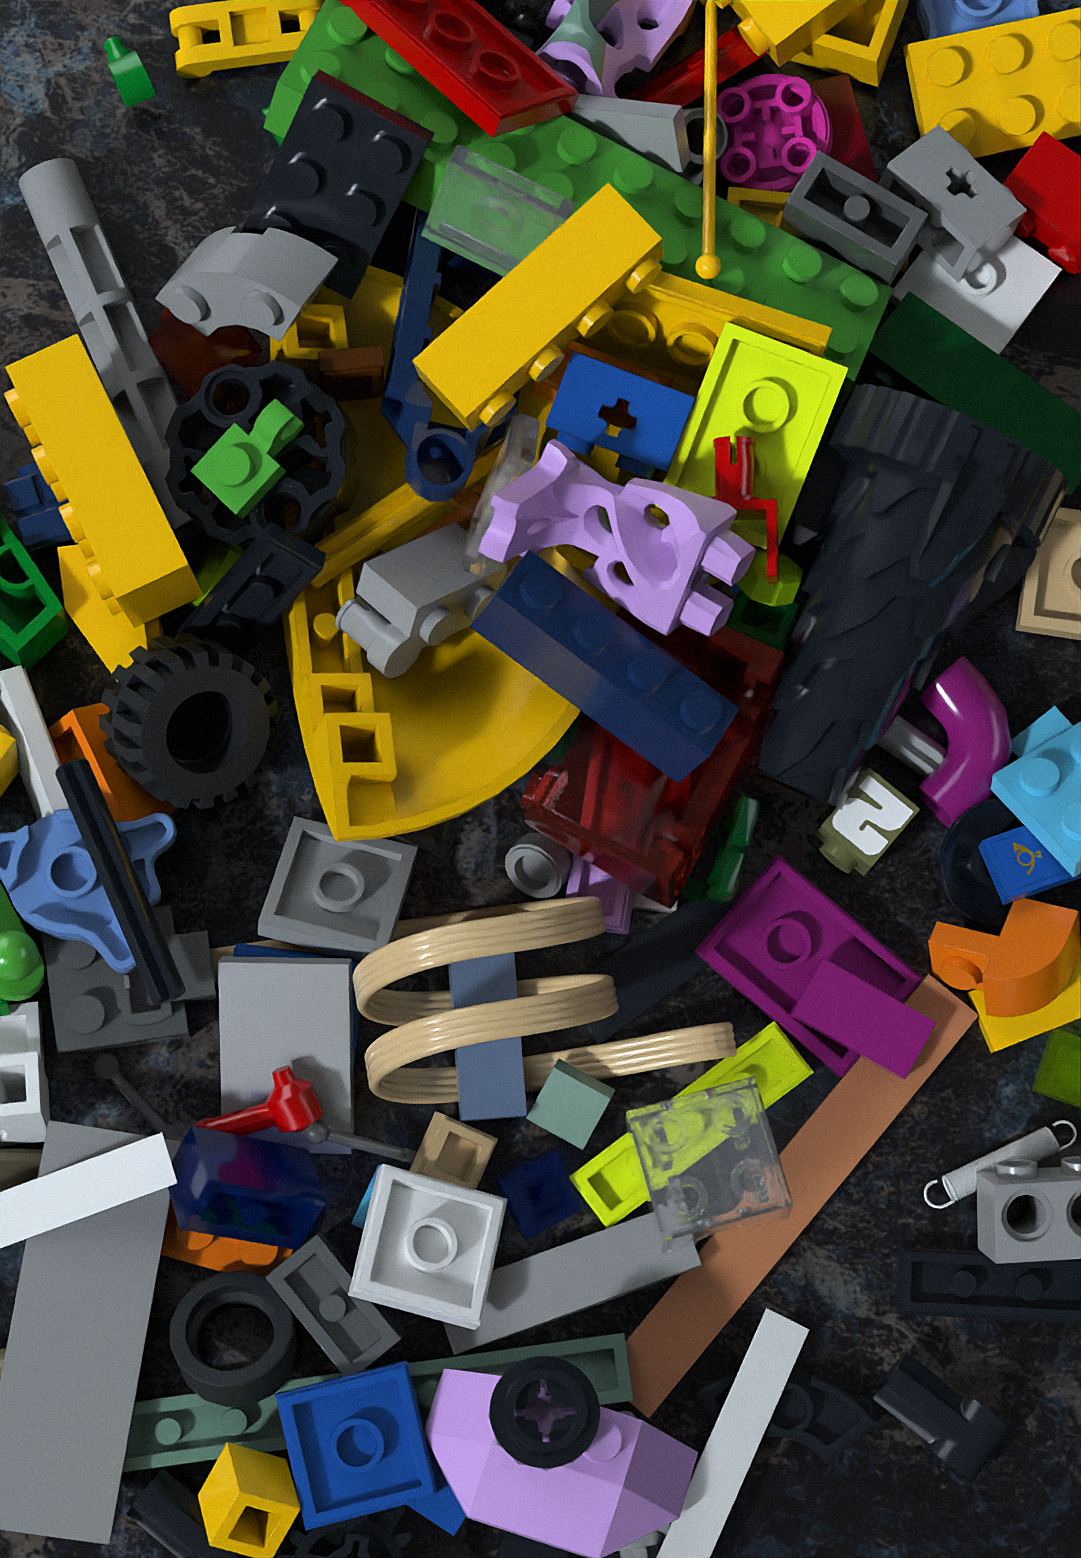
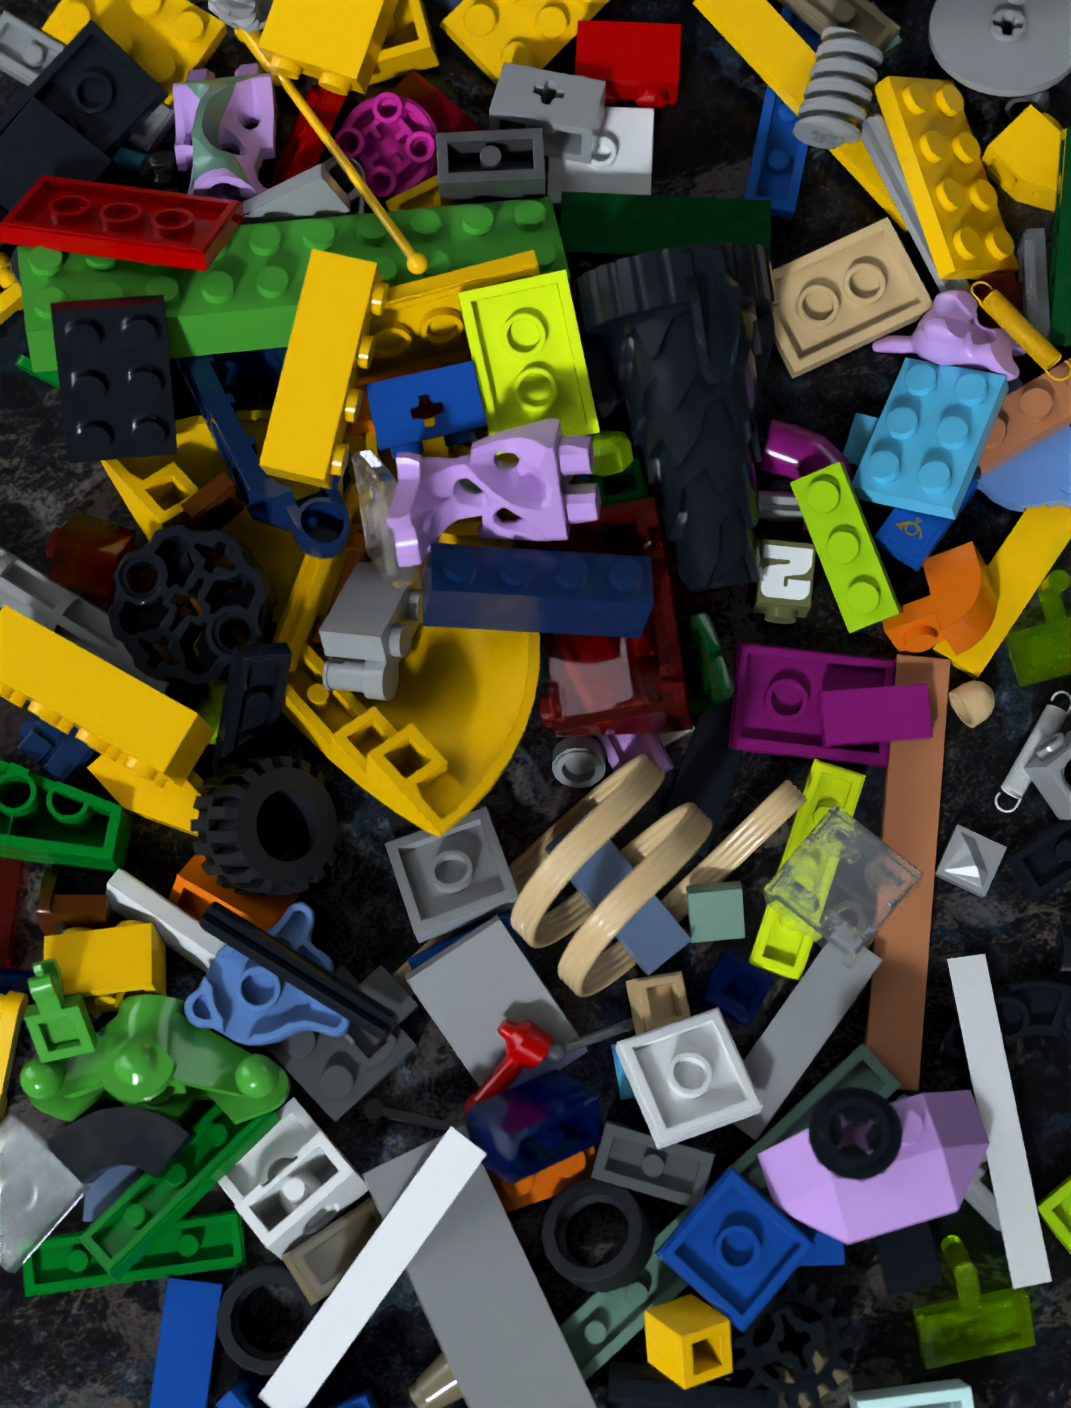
camera: 30 degrees left, 0 degrees up
(243, 464) = (186, 620): bright green plate -> none
(247, 281) = (96, 488): light grey brick -> none
(492, 212) = (242, 325): clear tile -> none
(736, 487) = (543, 404): red bracket -> none
(859, 1228) = (969, 861): none -> light grey tile
(946, 831) = (846, 547): none -> lime plate
(971, 1072) = (972, 702): none -> tan hinge

